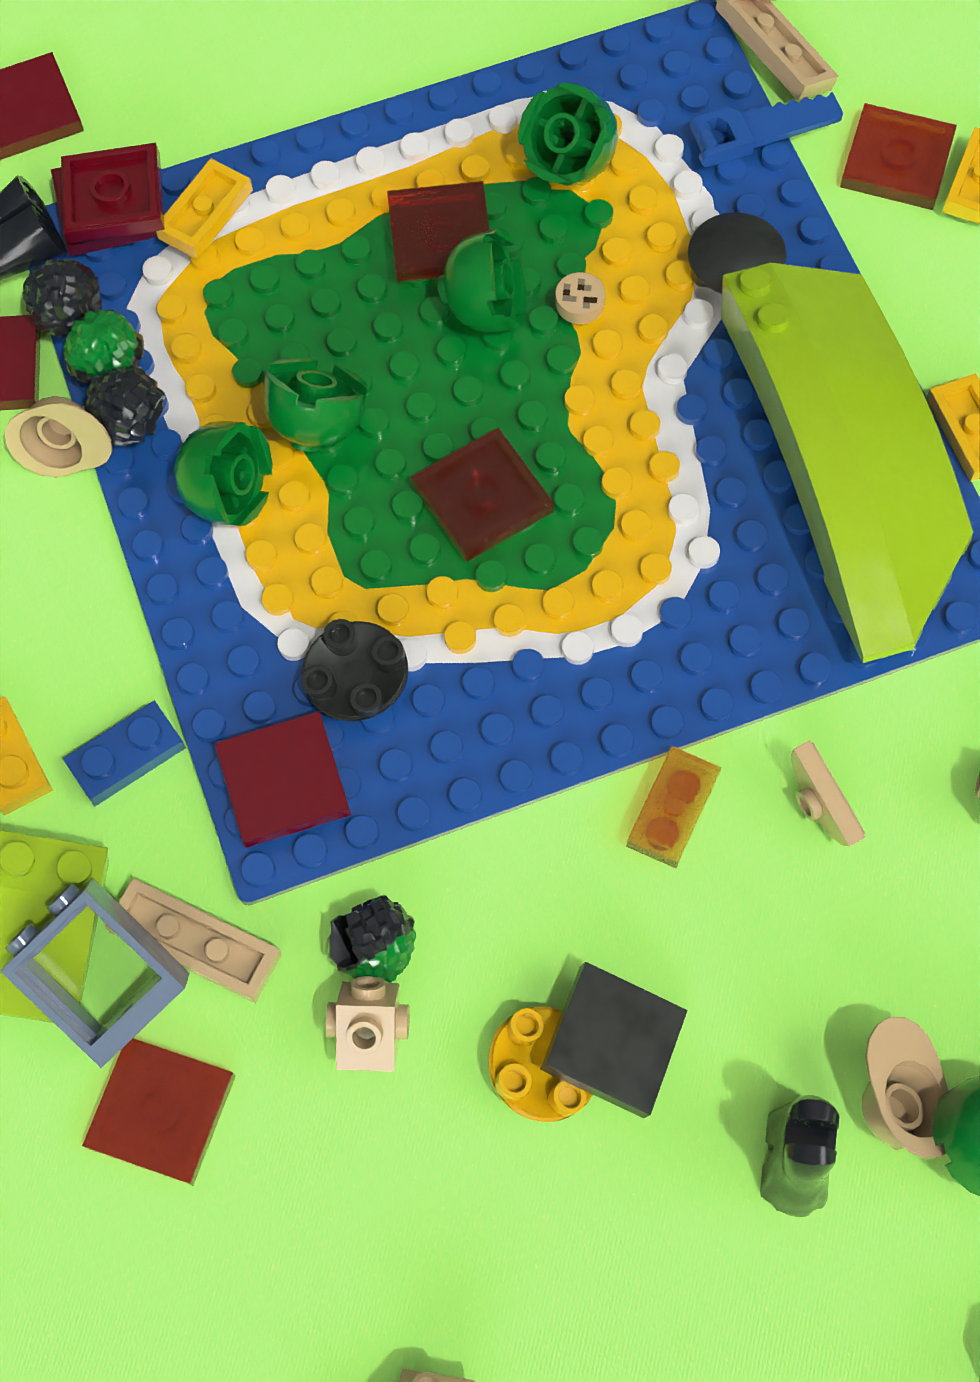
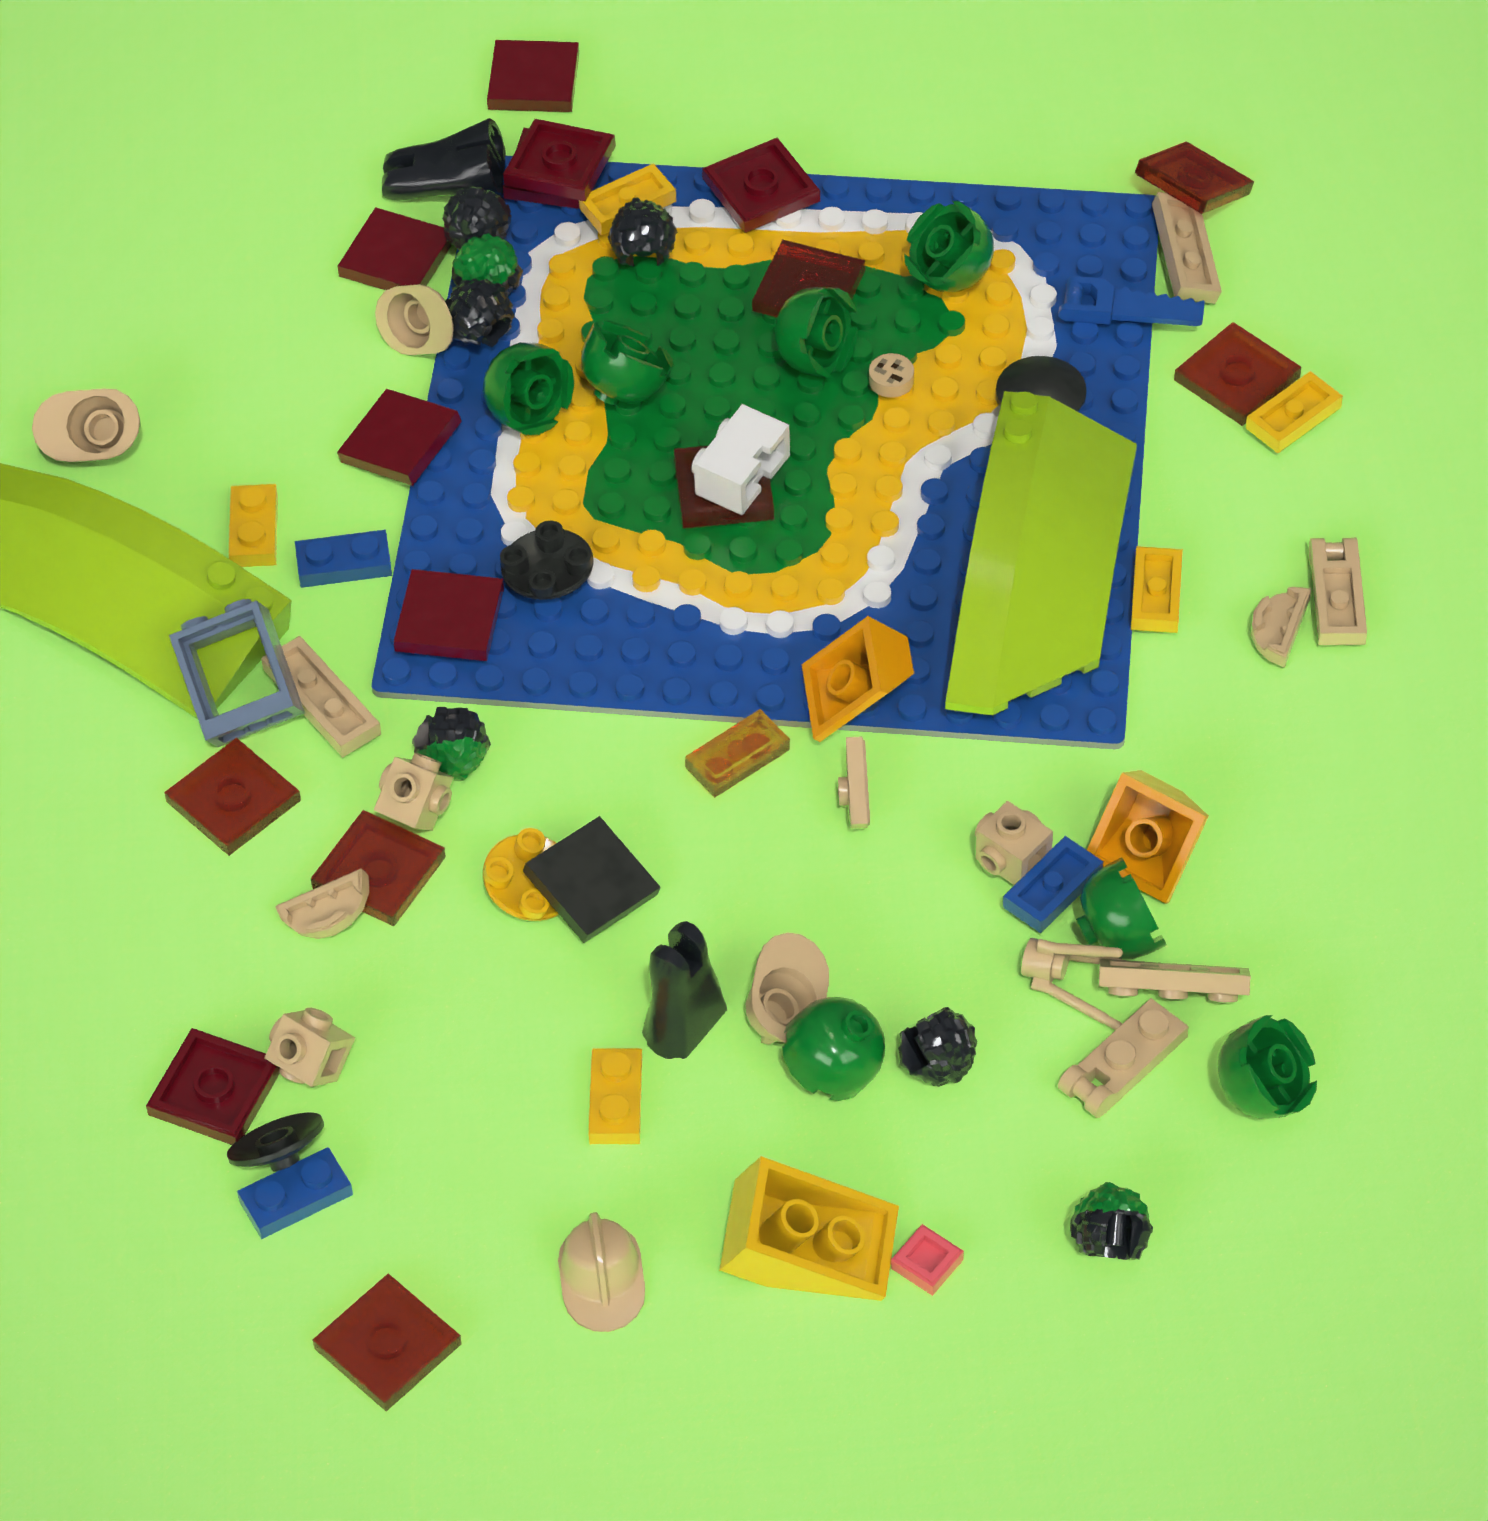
camera: 25 degrees right, 15 degrees down
(110, 582) = (399, 436): none -> dark red tile
(243, 240) = (642, 230): none -> black piece
(327, 138) = (761, 184): none -> dark red tile
(346, 1215) = (328, 907): none -> tan plate
(370, 1129) = (393, 858): none -> clear red tile
(497, 464) = (739, 456): none -> white brick
(757, 672) = (854, 674): none -> light orange slope
(785, 1298) = (615, 1096): none -> yellow plate

